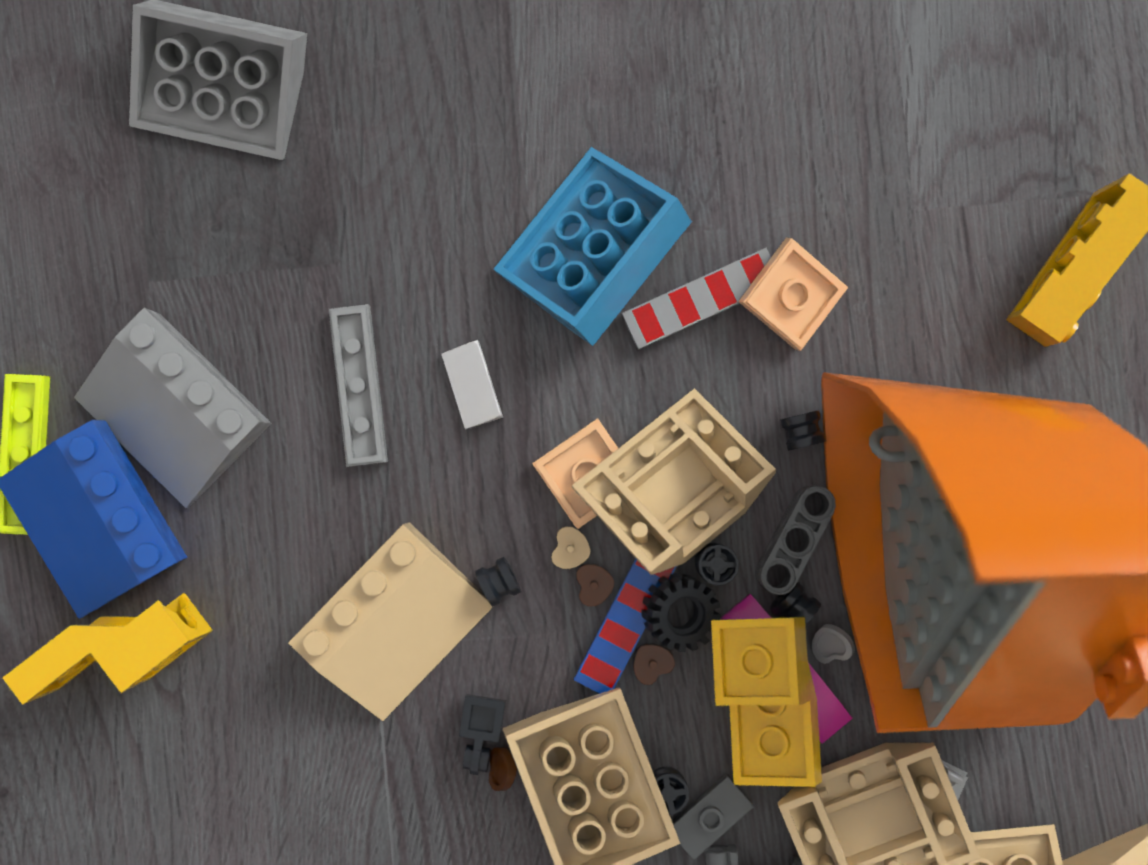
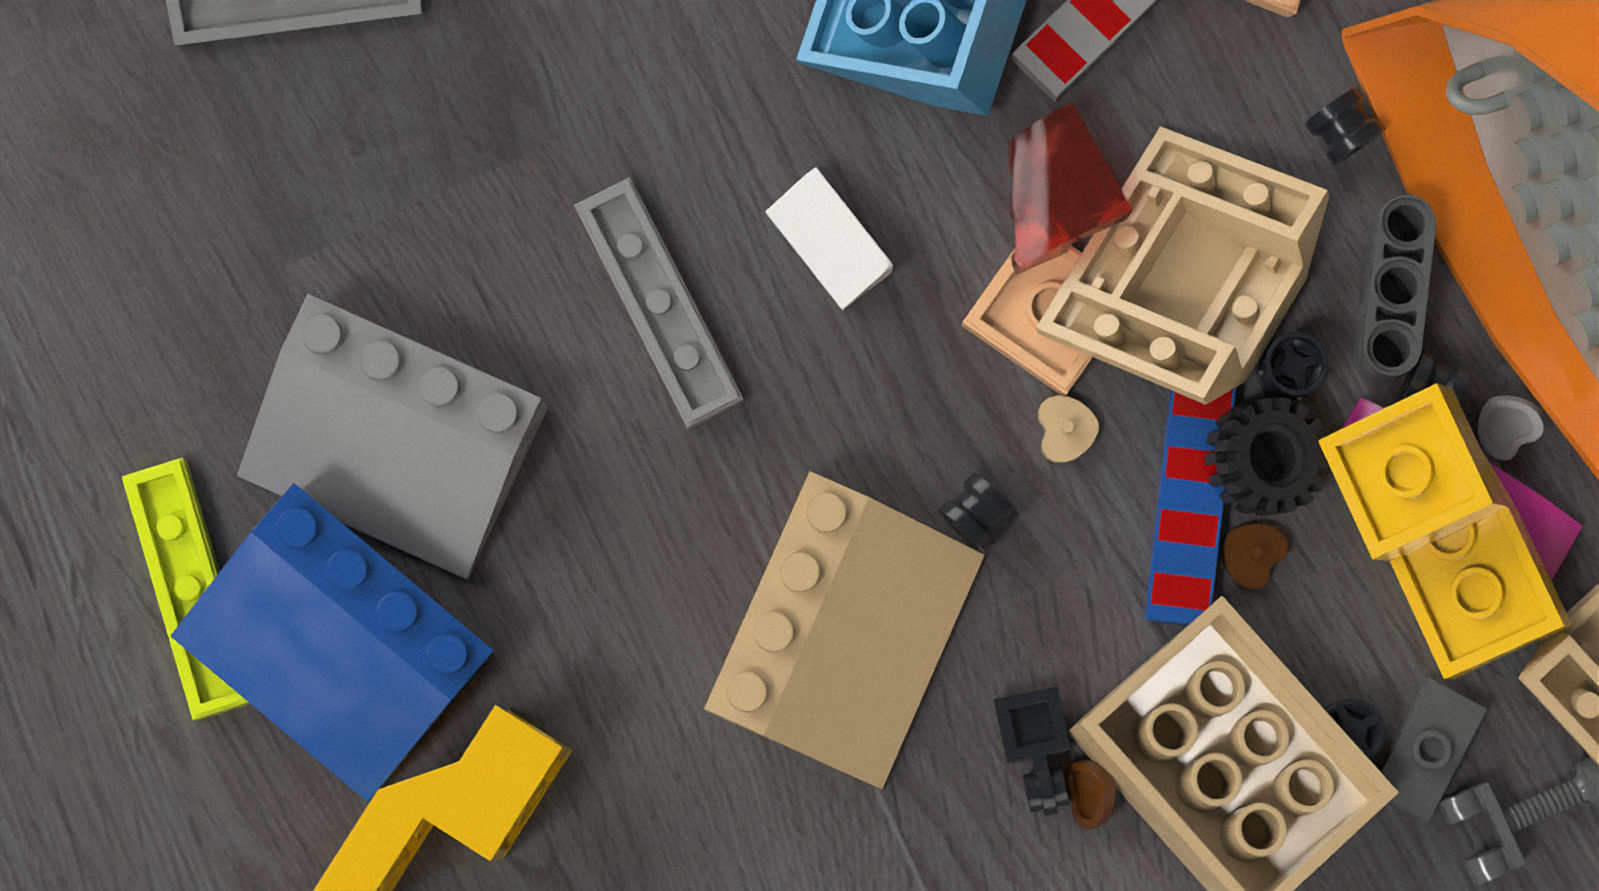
camera: 20 degrees left, 5 degrees down
(595, 584) = (1123, 468): reddish brown piece -> none
(618, 406) = (1059, 188): none -> clear red slope

